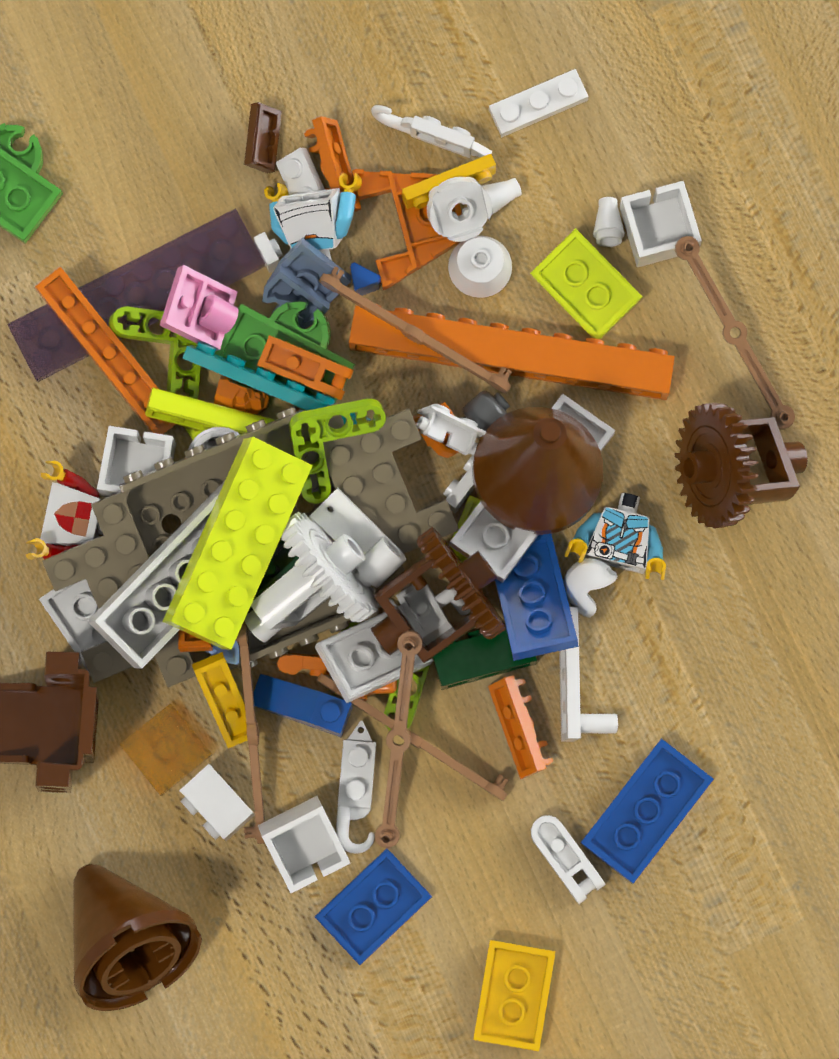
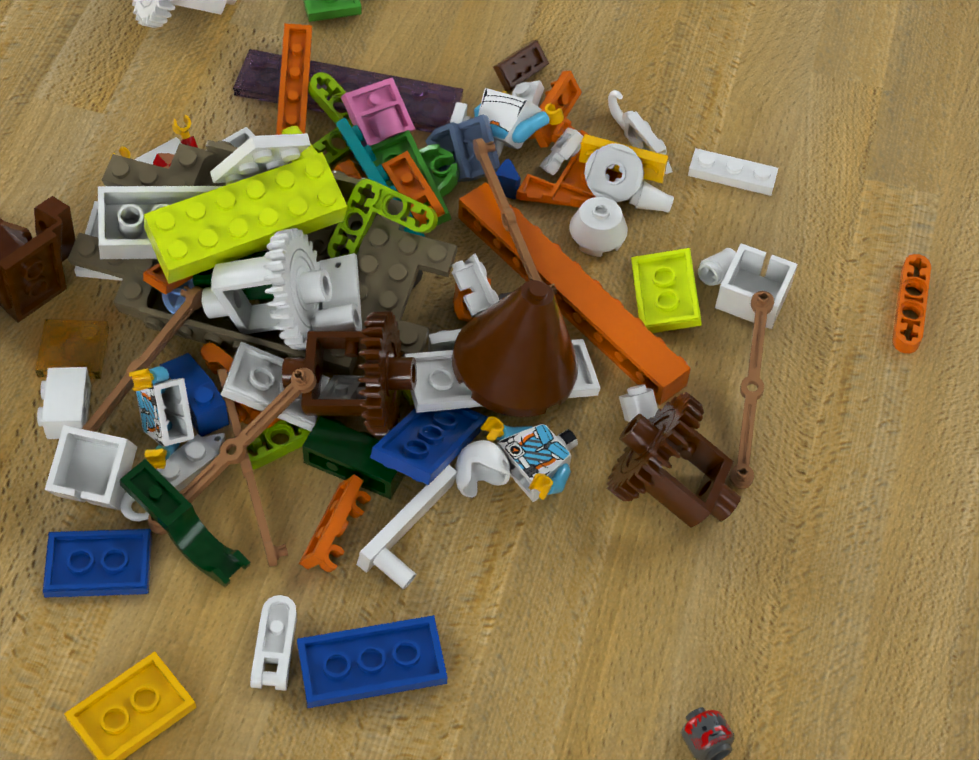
camera: 35 degrees right, 25 degrees down
(209, 486) = (260, 155): none -> white plate
(223, 698) = (142, 326): yellow plate -> none
(313, 751) = (162, 412): none -> torso
(386, 208) = (565, 147): none -> white plate
(413, 826) = (182, 523): none -> dark green piece
(658, 421) = (638, 401): none -> white plate
(793, 124) = (914, 303): none -> orange beam

